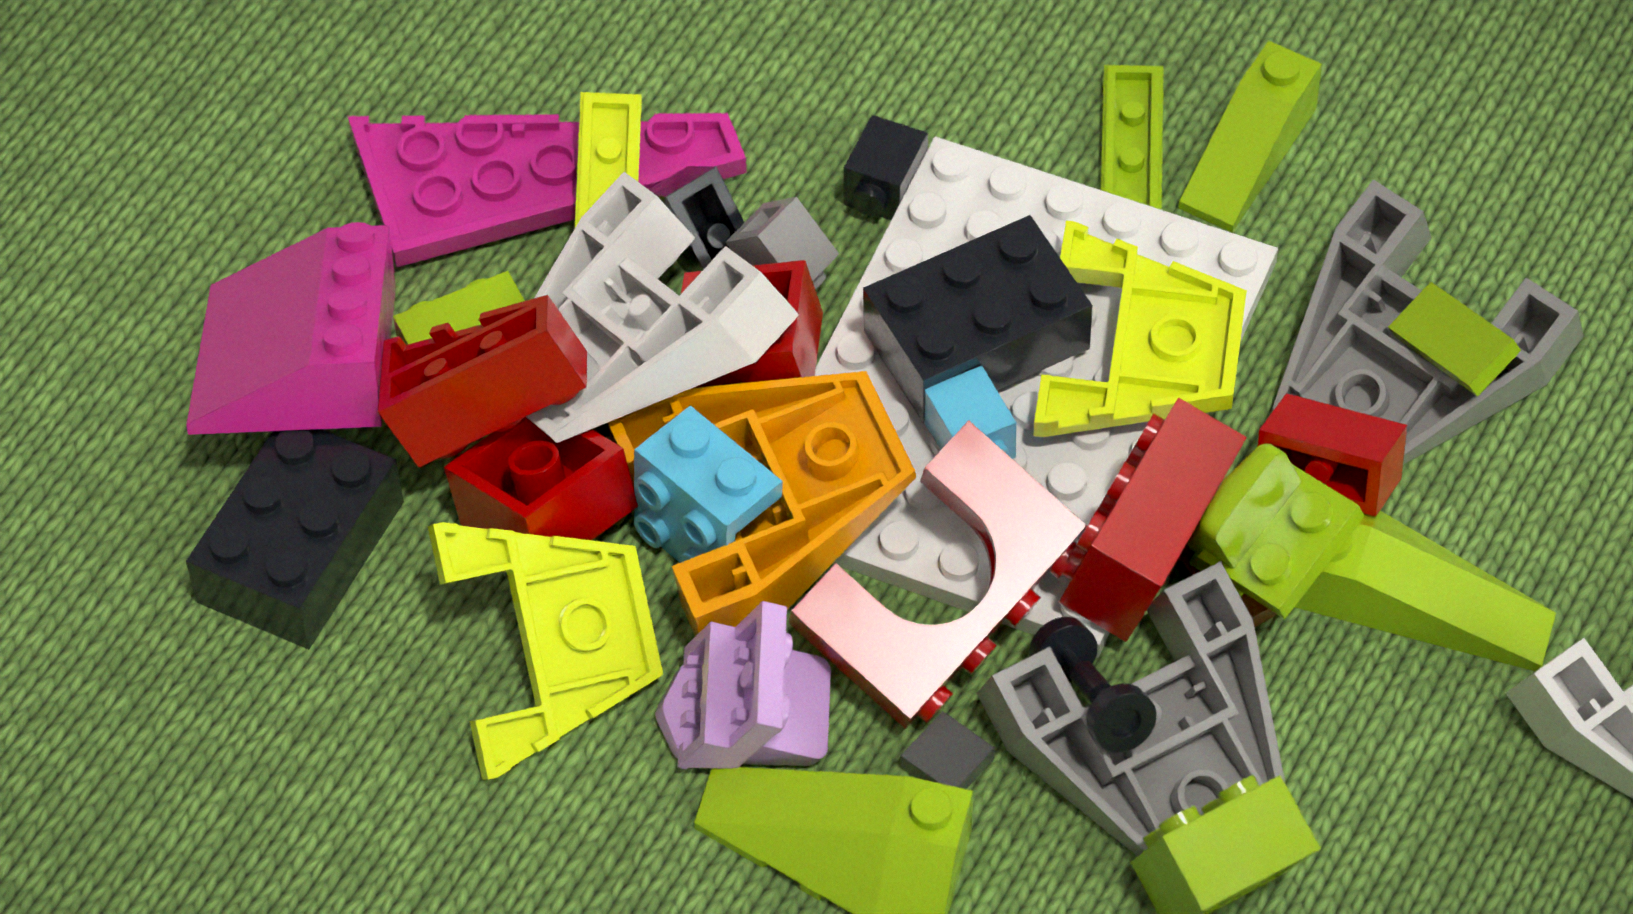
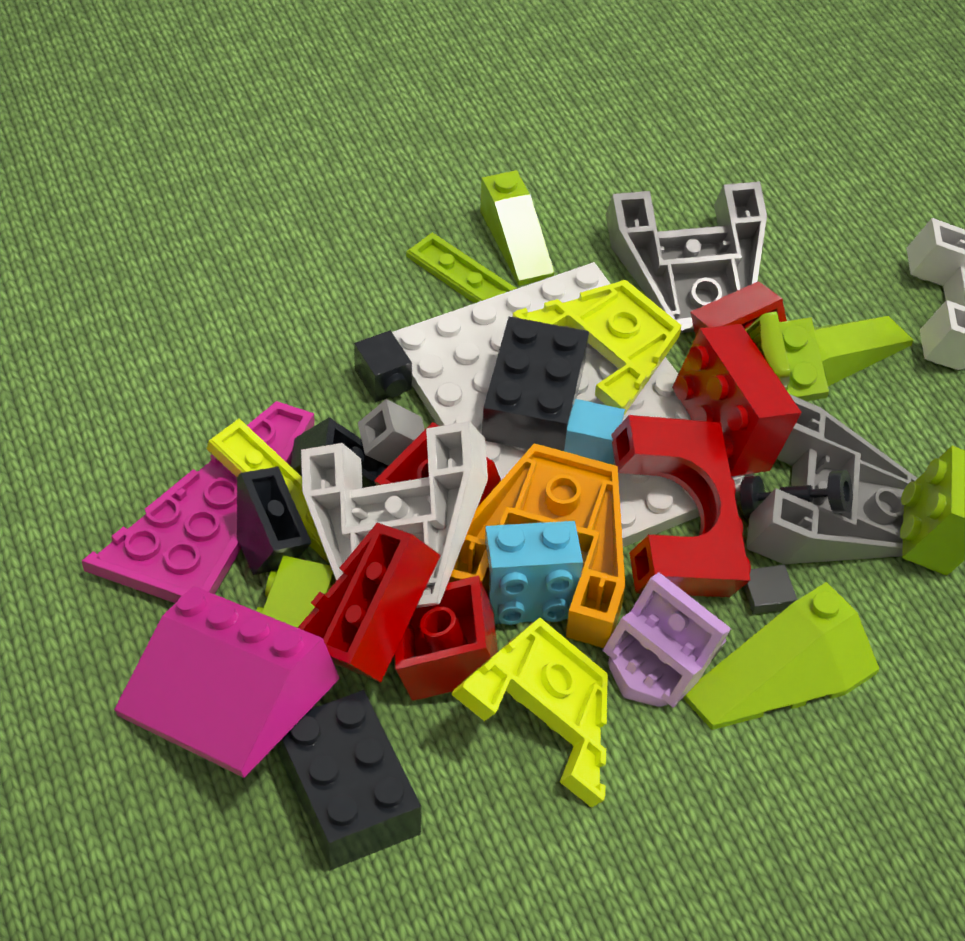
camera: 55 degrees left, 5 degrees down
(537, 220) = (268, 520): none -> slope
(1454, 338) = (725, 233): lime tile -> none

